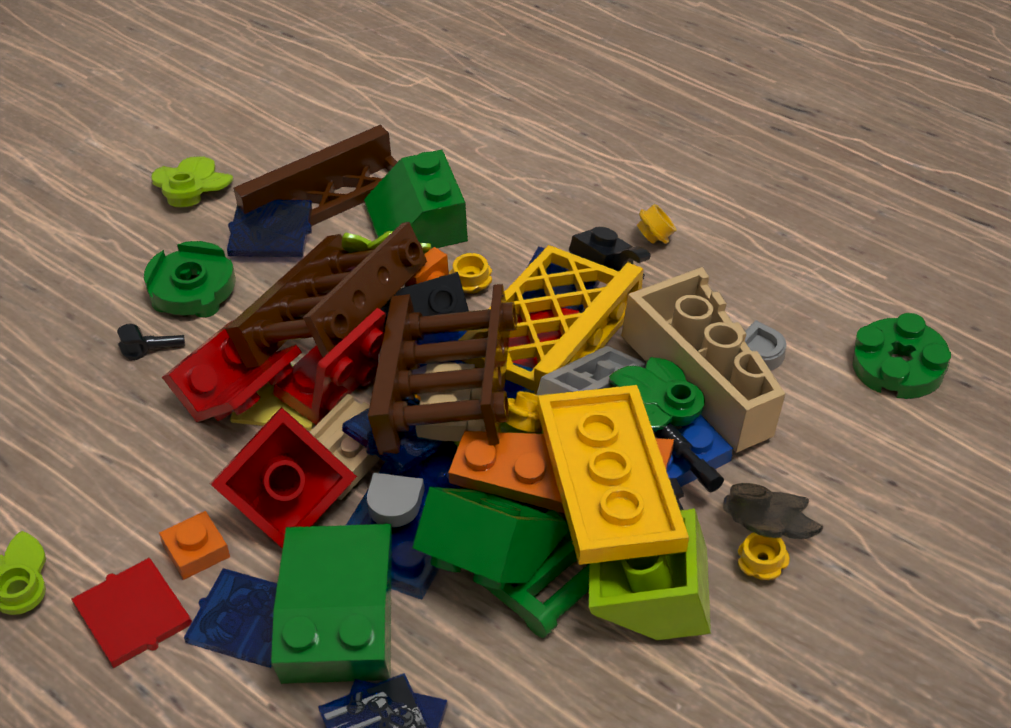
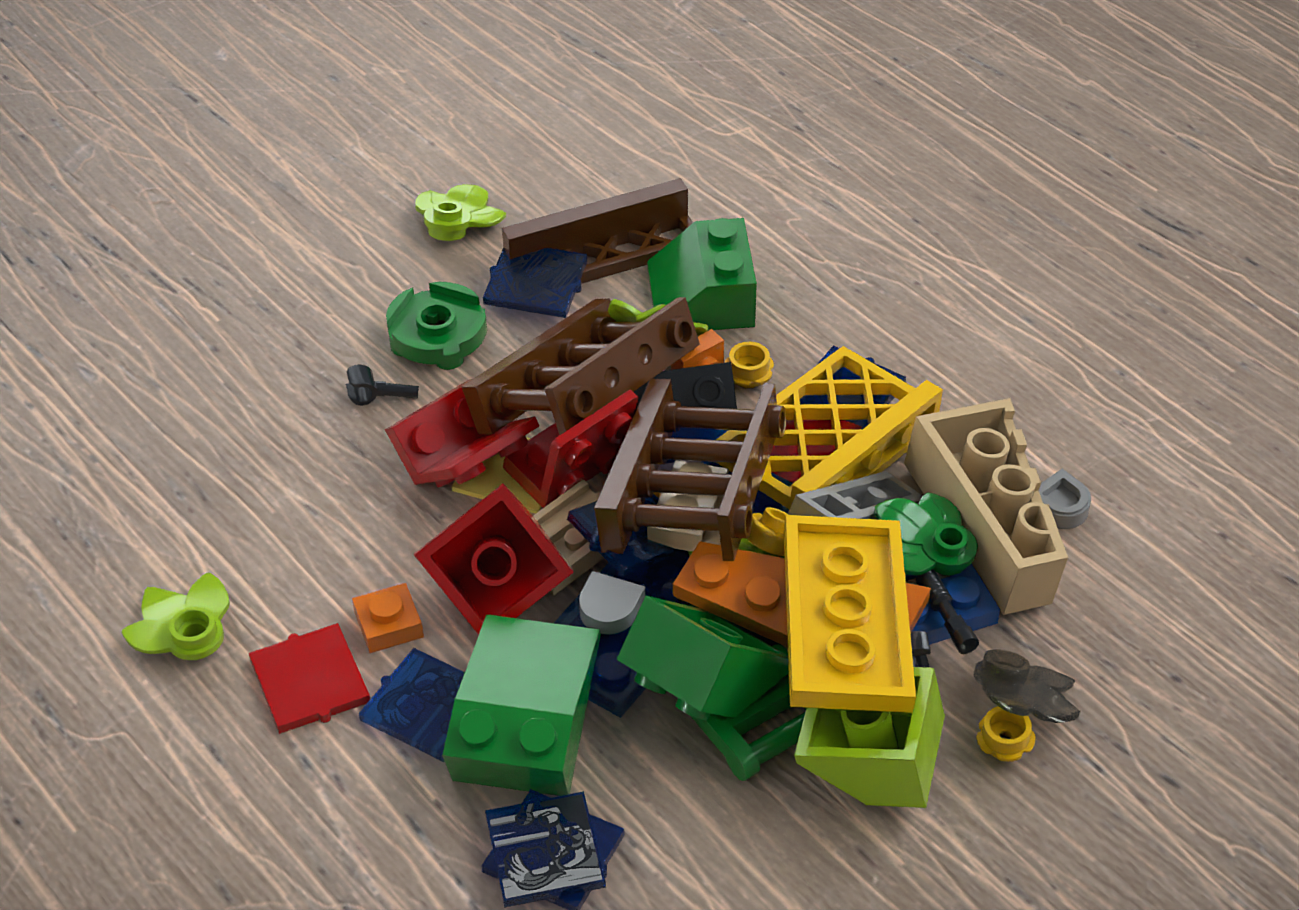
camera: 10 degrees right, 0 degrees up
(606, 249) = (909, 360): black plate -> none
(655, 224) = (972, 340): yellow plate -> none
(907, 336) = (1225, 512): green plate -> none

